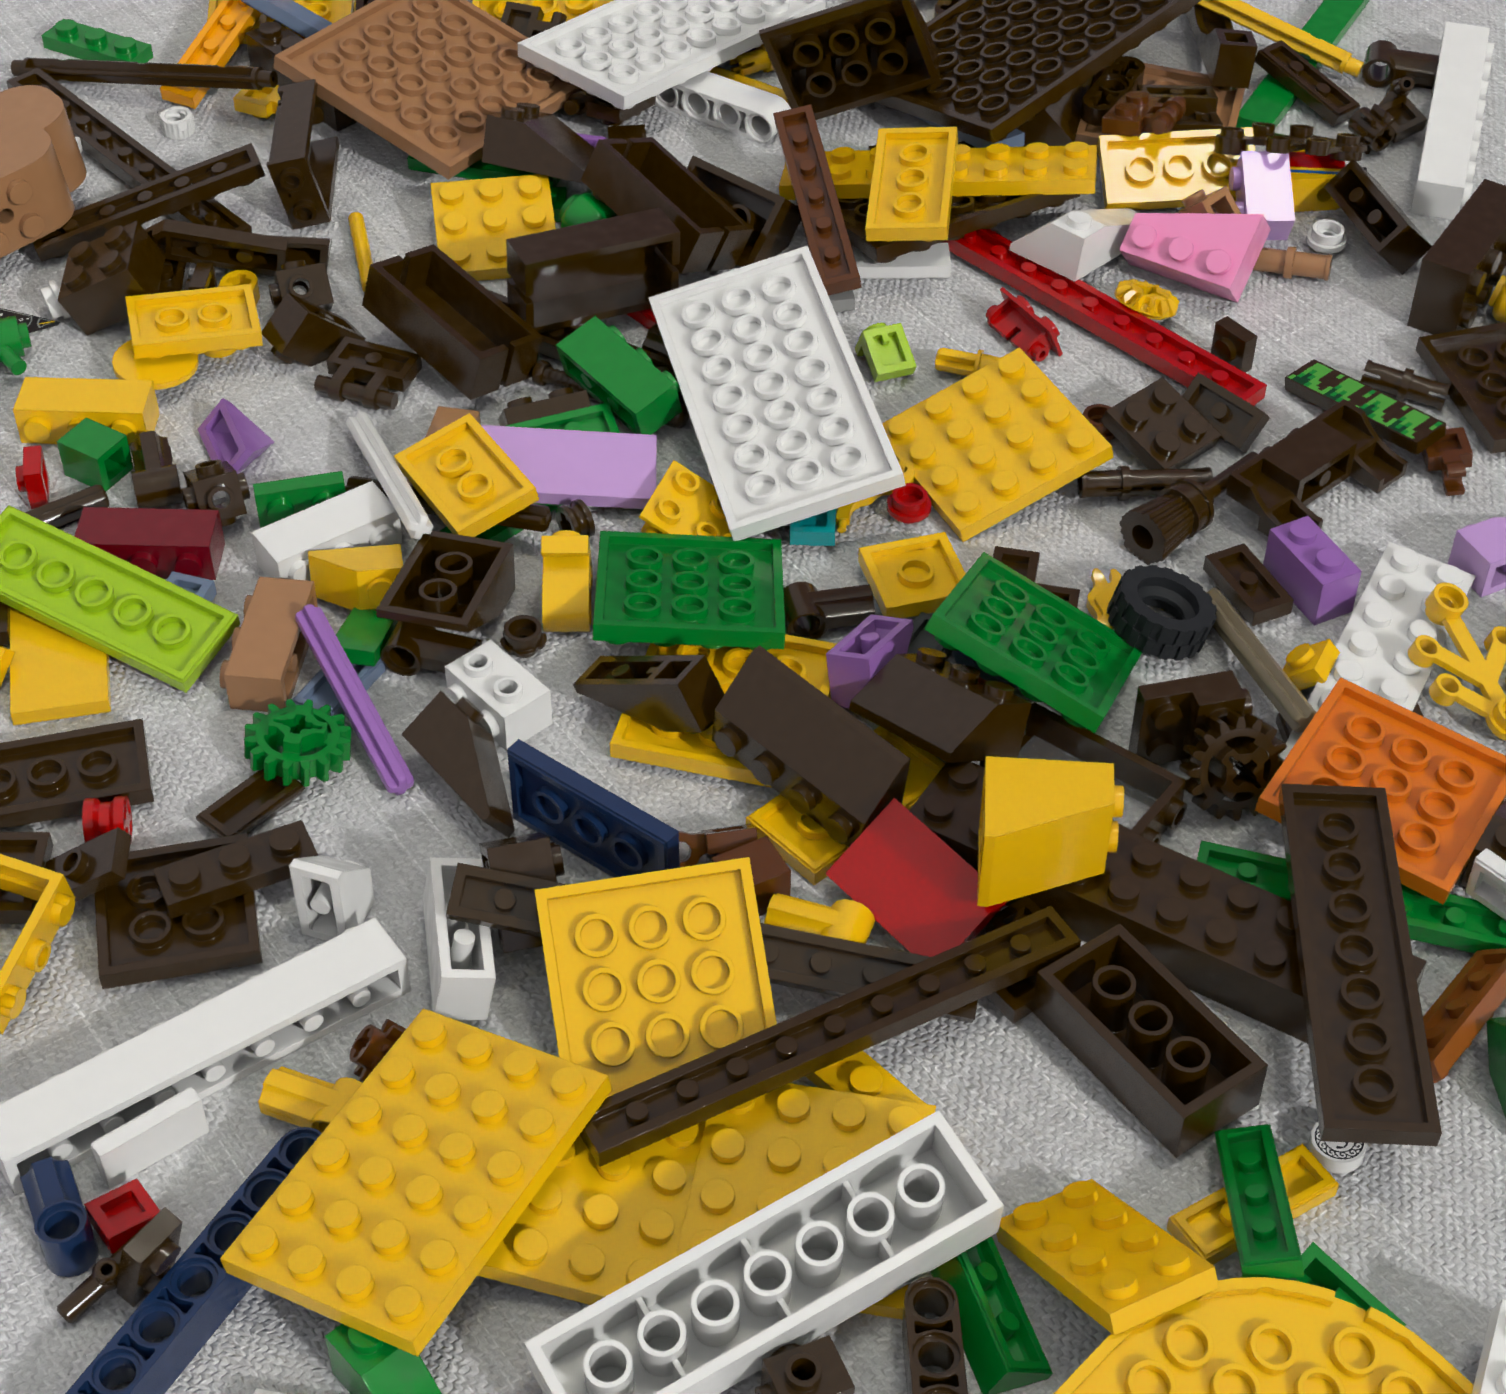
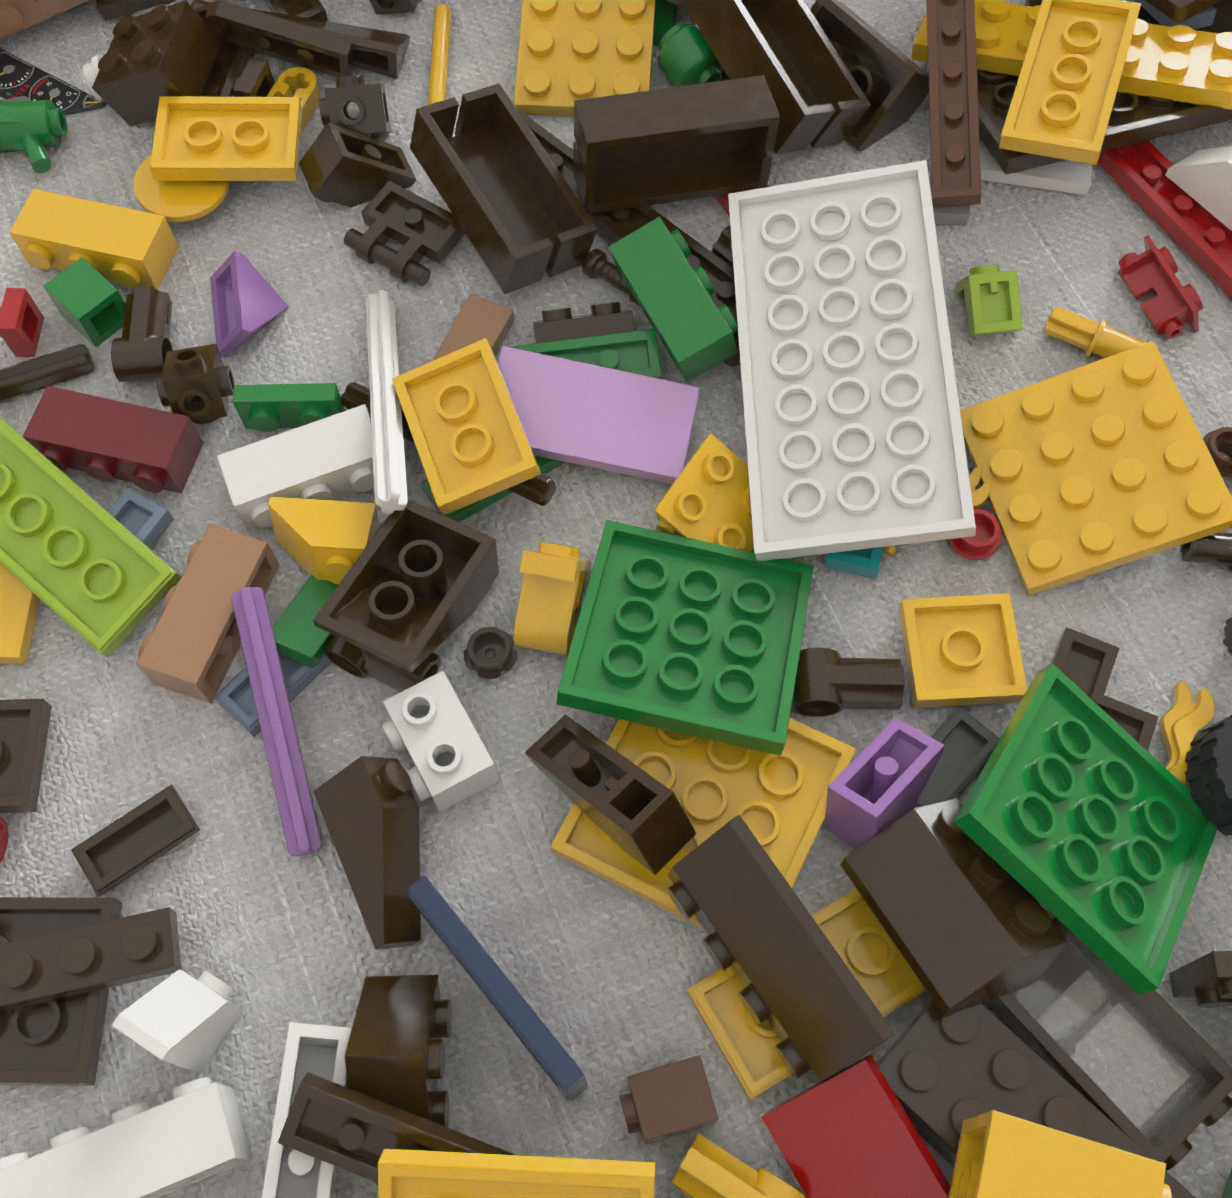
camera: 15 degrees right, 20 degrees up
(297, 742) = (211, 790): green gear -> none
(576, 518) = (584, 492): dark brown bush -> none
(715, 841) = (650, 1027): reddish brown plate -> none

